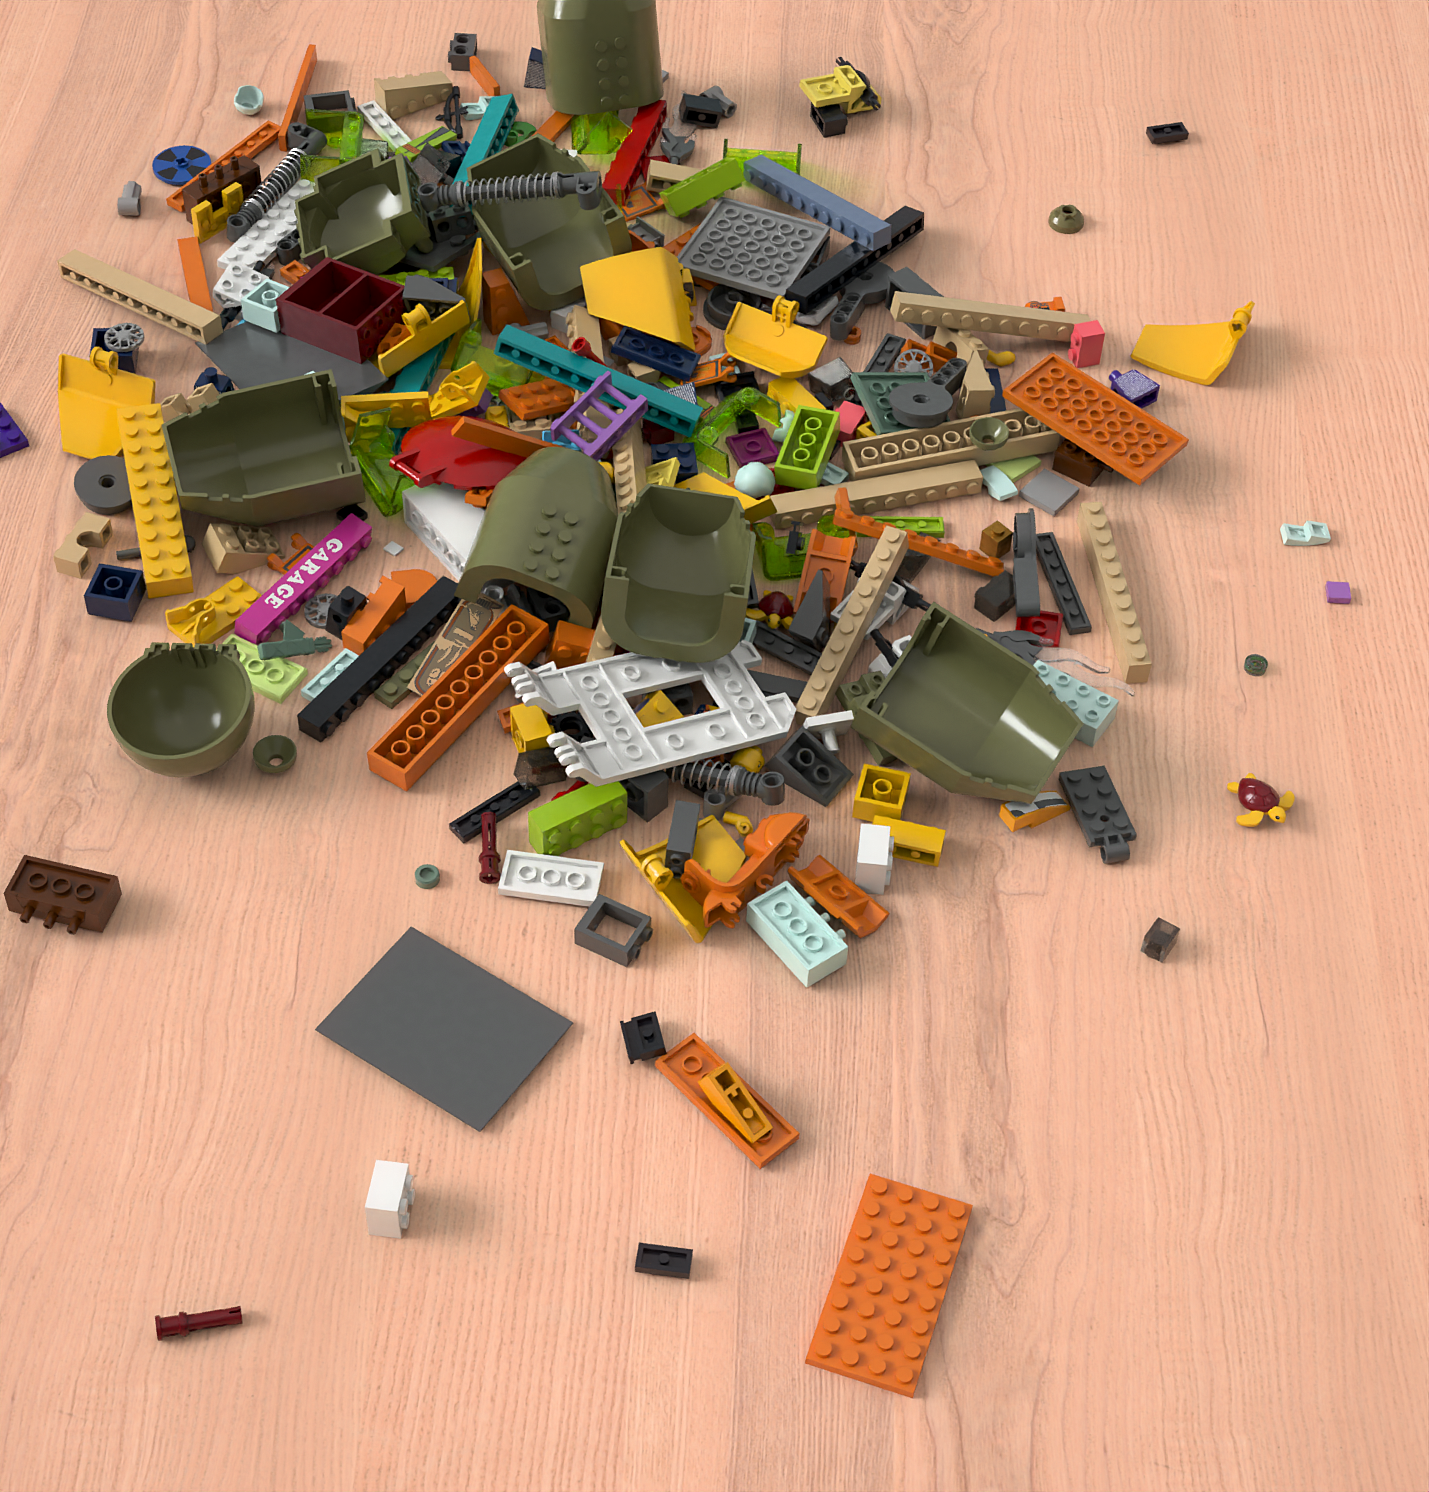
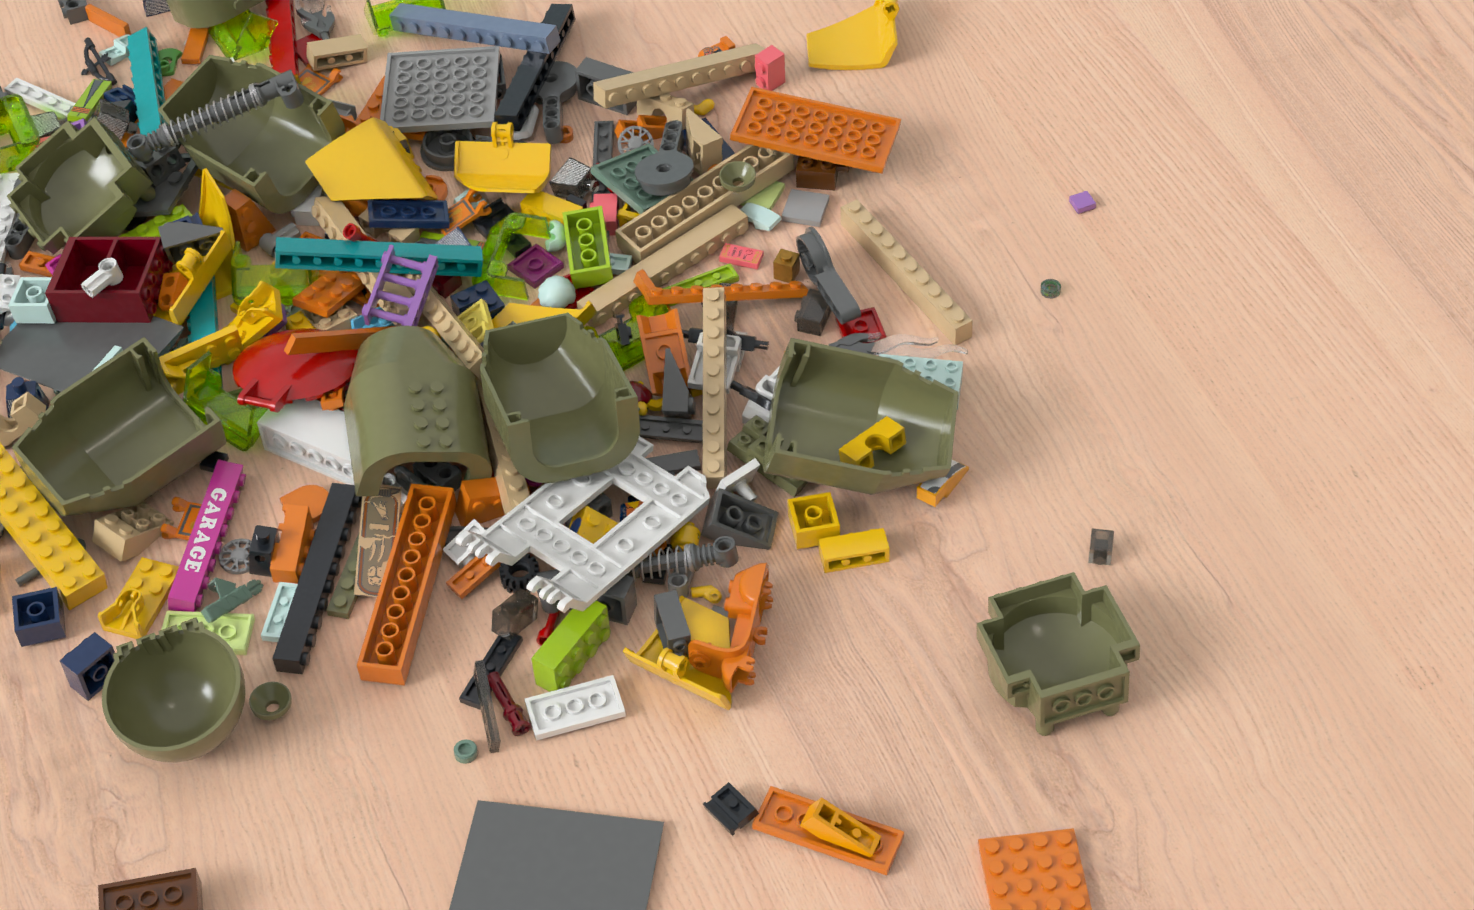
camera: 20 degrees left, 0 degrees up
(127, 647) = (88, 665): none -> dark blue brick
(336, 302) = (108, 274): none -> white piece
(393, 548) = (268, 476): white window -> none
(411, 93) = (49, 58): tan wedge -> none
(467, 841) = (486, 706): none -> clear smoke tile
(529, 727) = (487, 586): yellow brick -> none
(621, 954) = (654, 746): dark grey window -> none
(702, 187) = (367, 50): lime brick -> none
(797, 933) = (810, 665): light aqua piece -> none
(840, 896) = (825, 619): orange piece -> none
(874, 858) = (838, 577): white brick -> none
(958, 514) = (741, 256): none -> coral tile
(992, 739) = (883, 435): none -> yellow arch
(1049, 1020) = (1058, 650): none -> olive windscreen
(1061, 584) = (864, 286): dark grey tile -> none
(1096, 799) = (988, 453): dark grey hinge -> none
(1135, 387) = (828, 90): dark purple torso -> none
(1260, 800) = (1116, 399): animal -> none
(1310, 534) = (1032, 163): light aqua slope -> none

